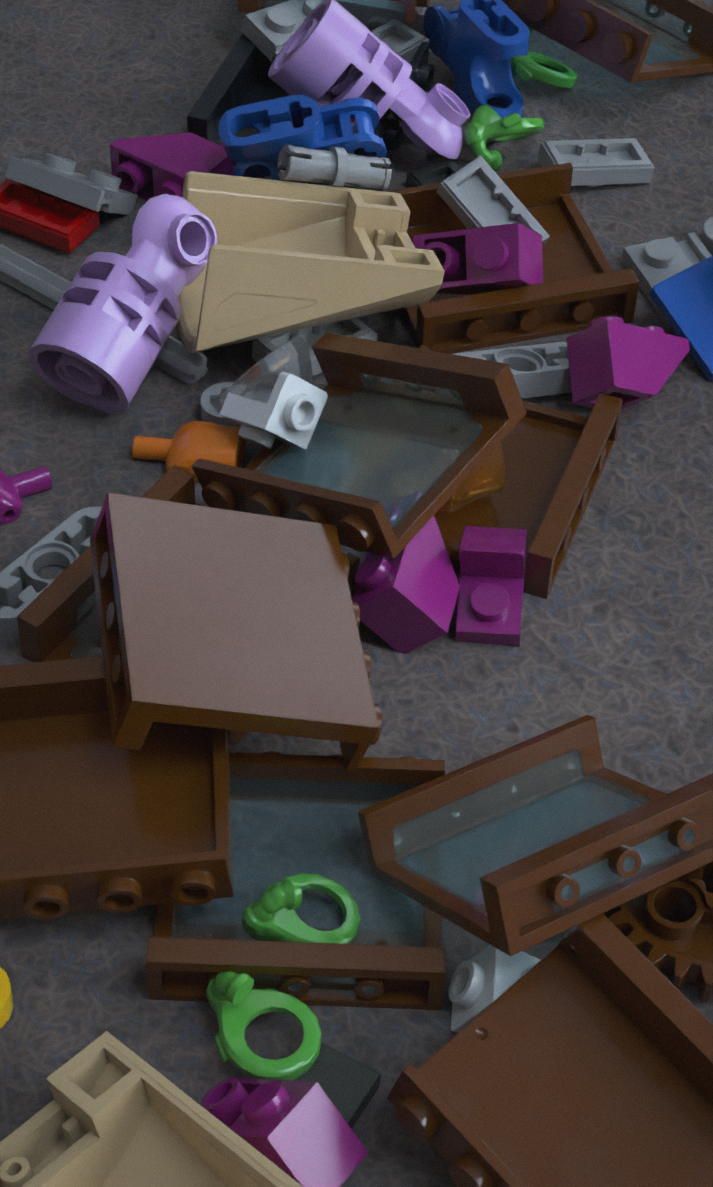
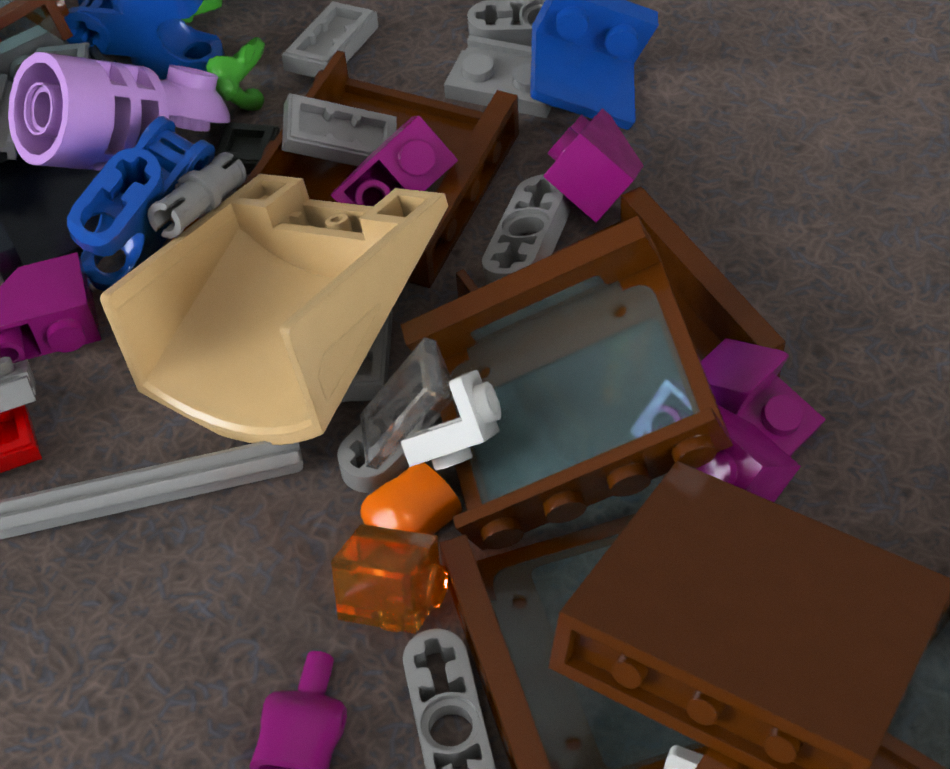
camera: 45 degrees left, 5 degrees up
(123, 307) = (215, 461): lavender cylinder -> none
(125, 456) = (388, 578): none -> clear orange brick

